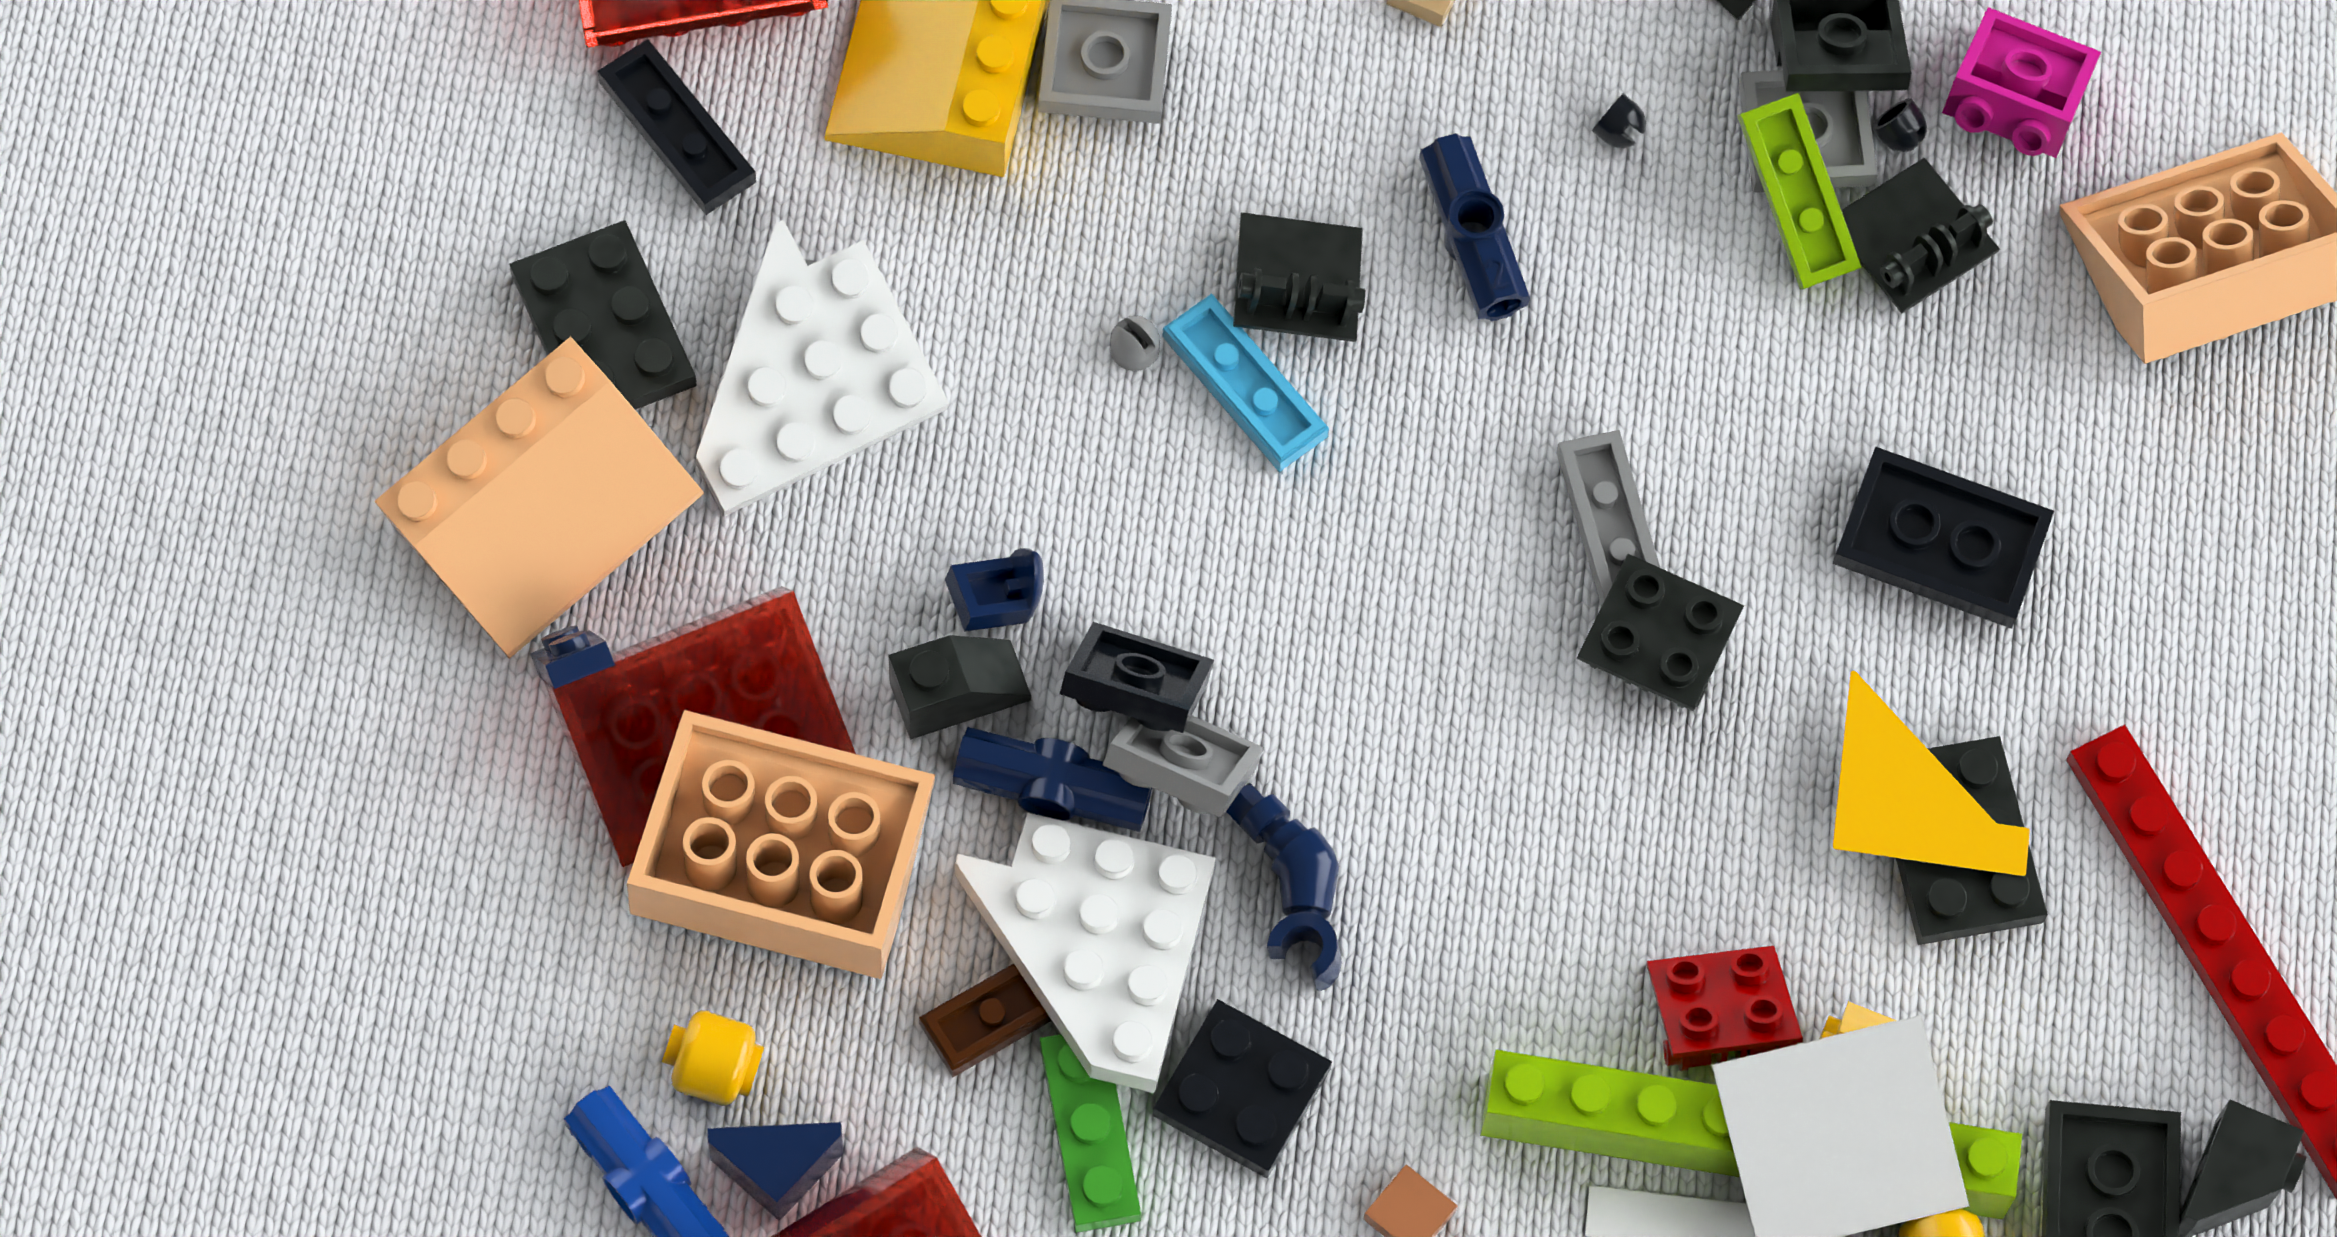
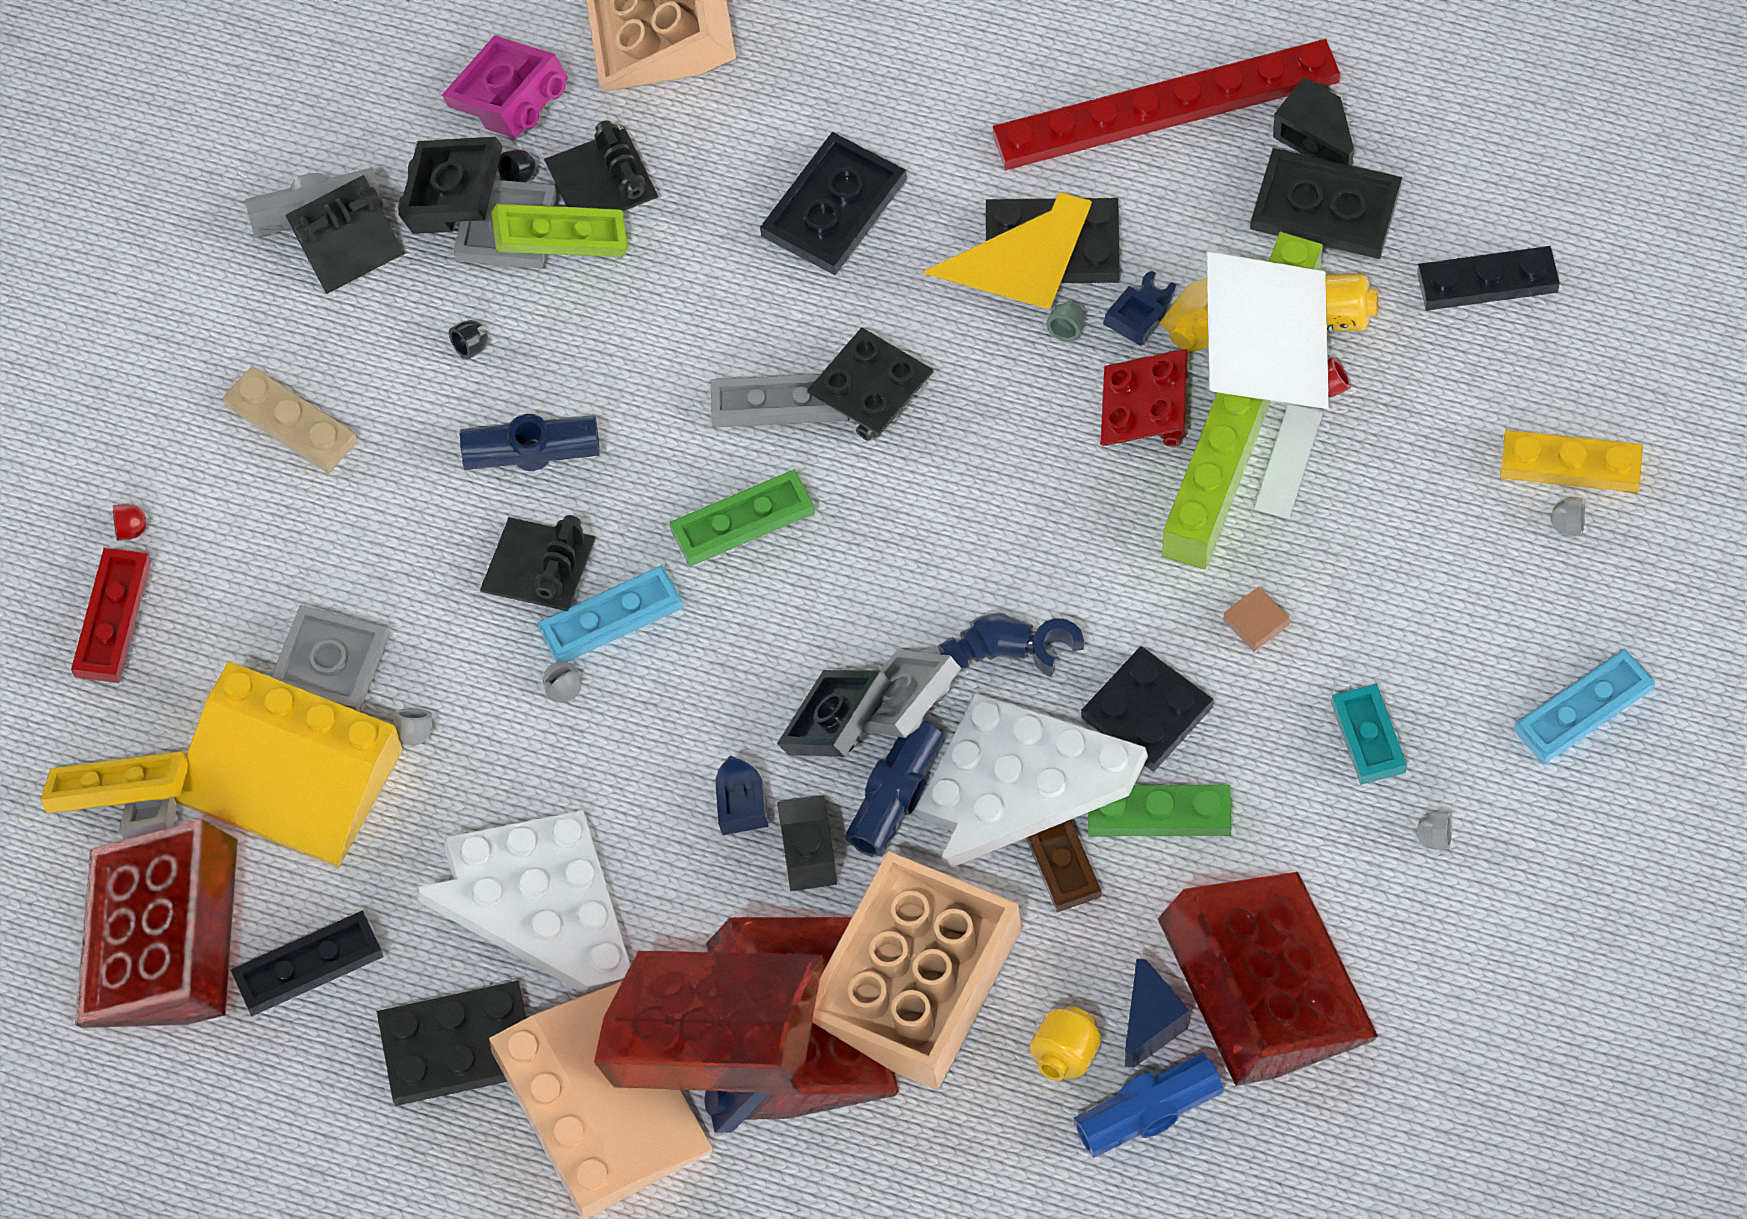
camera: 70 degrees left, 5 degrees down
(636, 590) = (710, 1022): none -> clear red slope
(1032, 175) = (413, 725): none -> light grey hinge
(1420, 513) = (741, 517): none -> bright green plate
(1827, 879) = (1066, 322): none -> sand green hinge
(1864, 972) = (1139, 312): none -> dark blue plate

